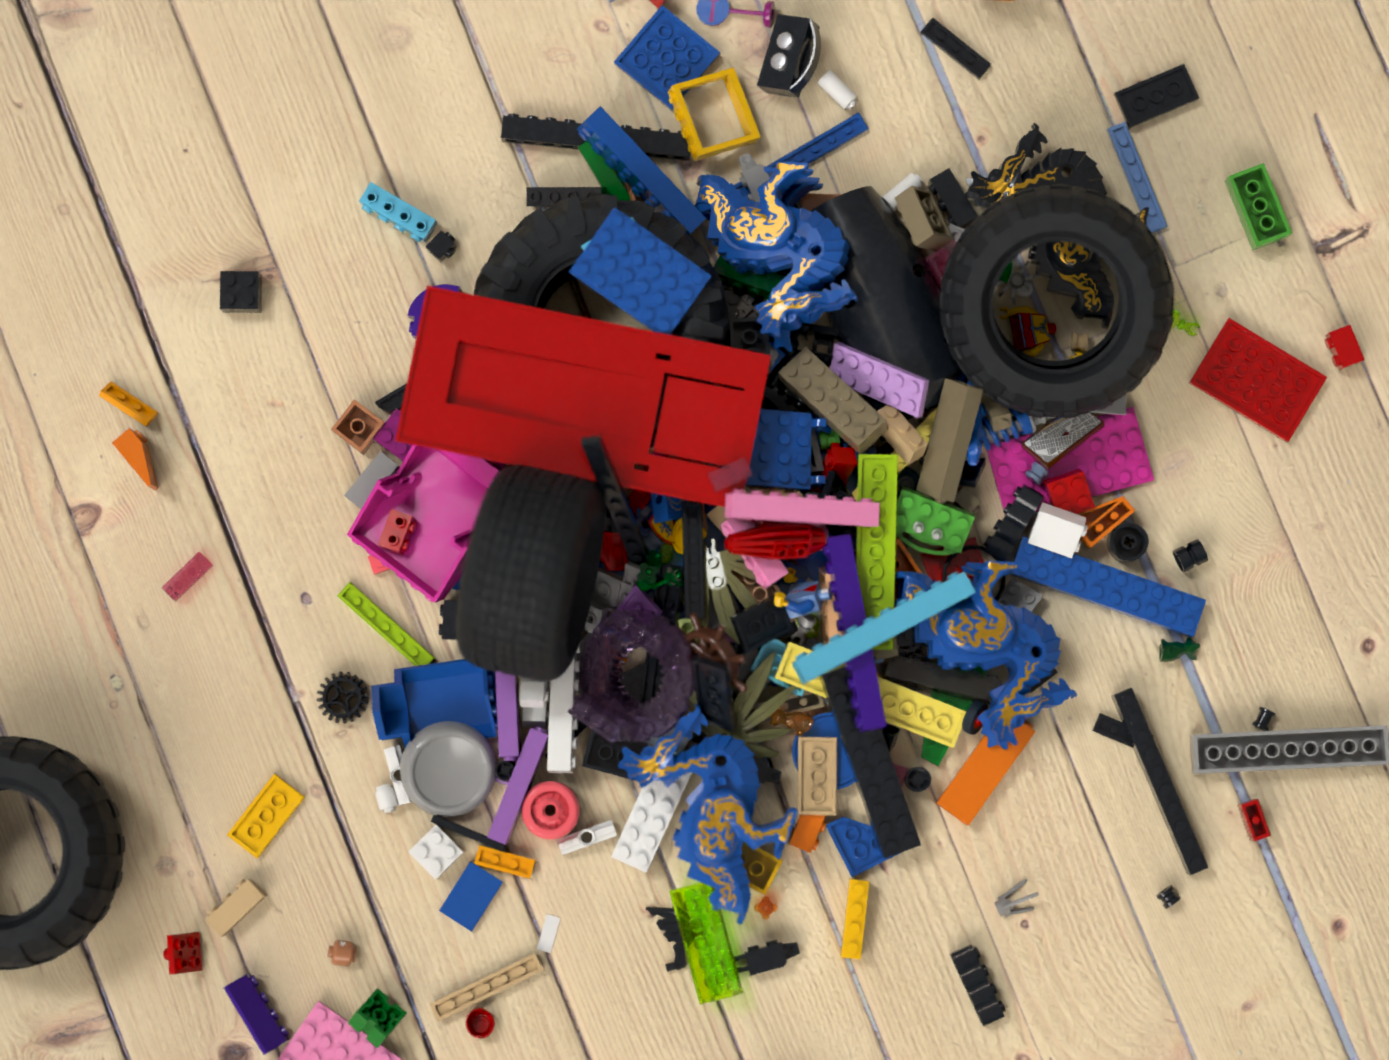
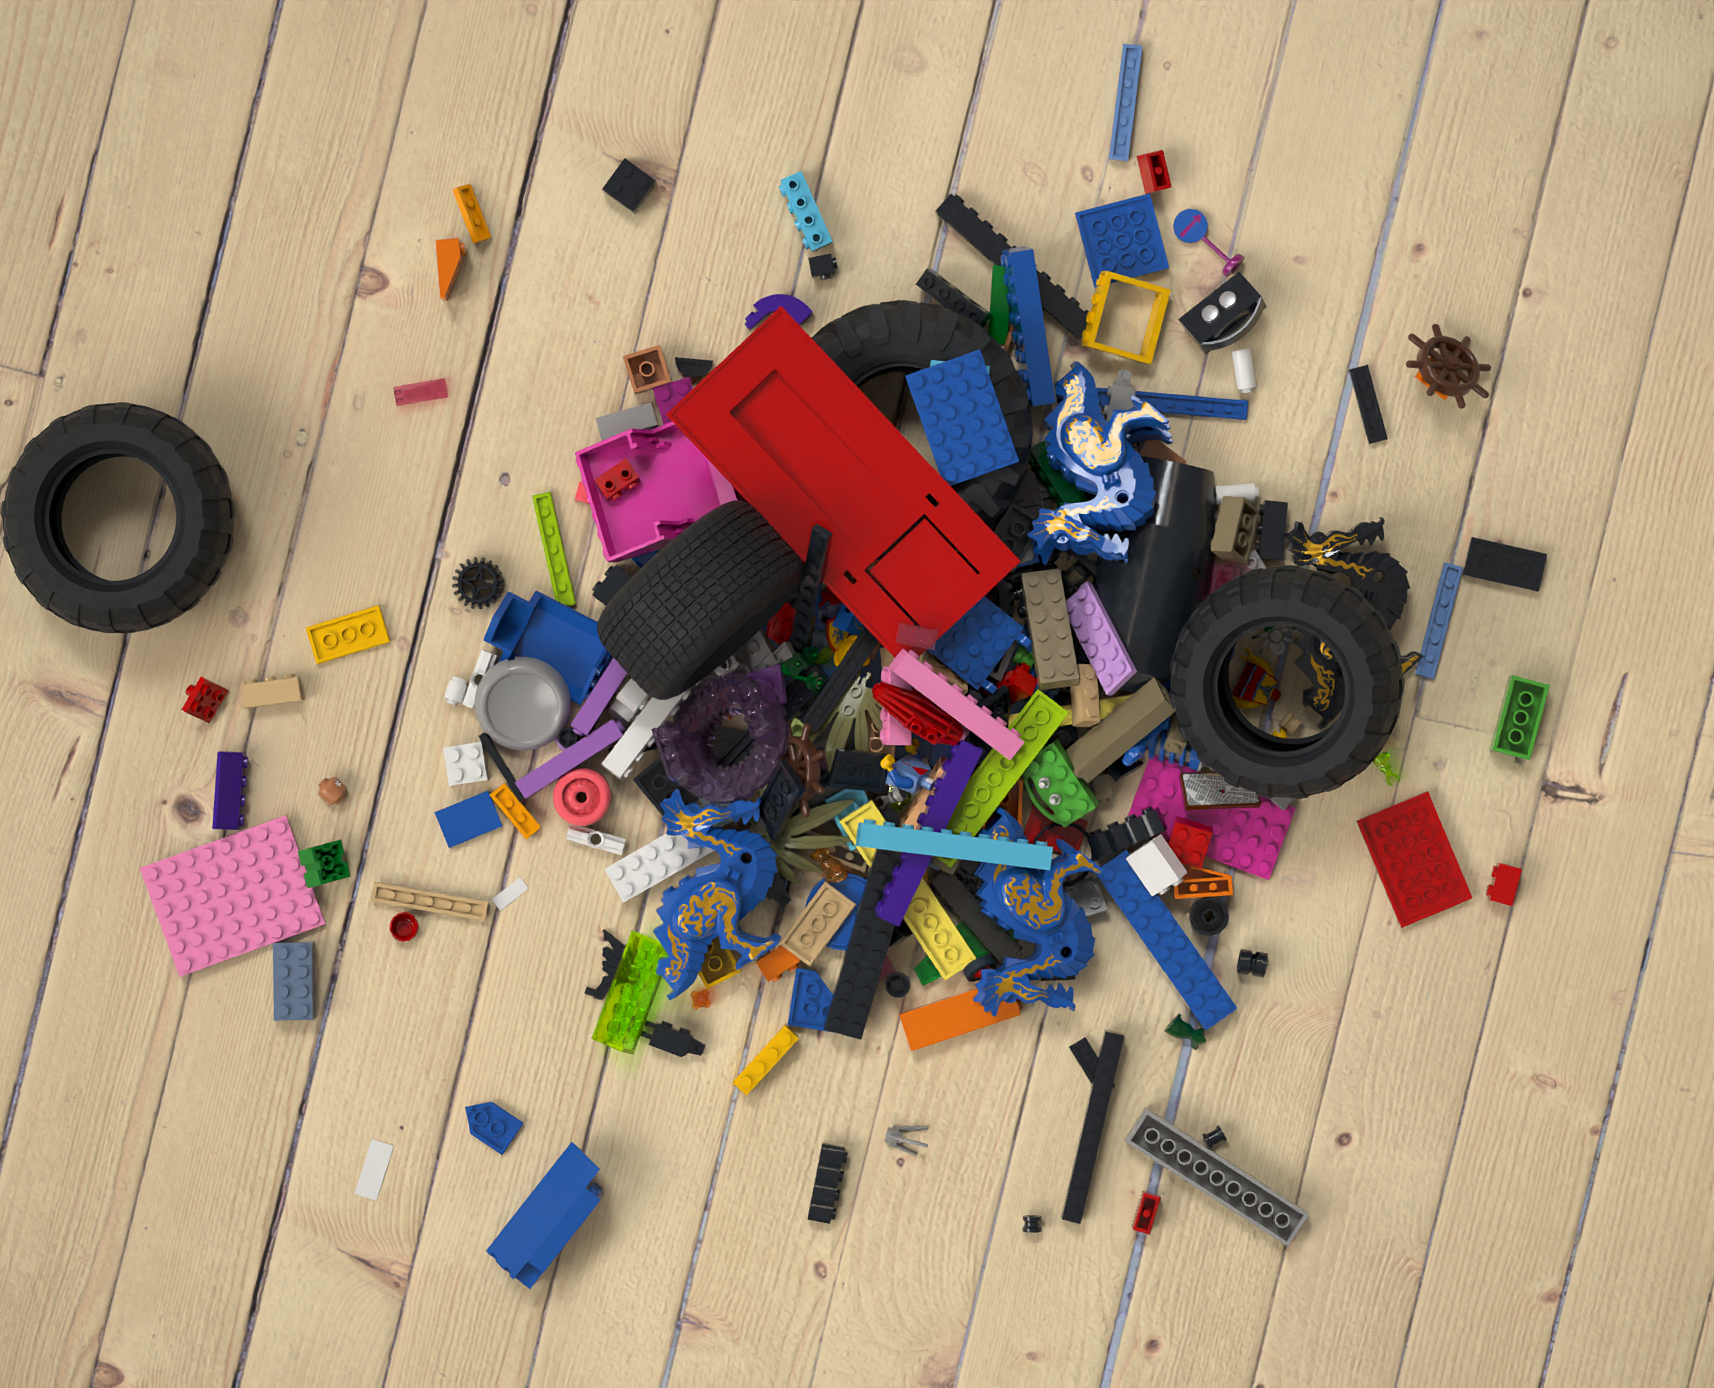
camera: 30 degrees right, 5 degrees up
(1036, 473) = (1175, 806): sand blue wheel -> none

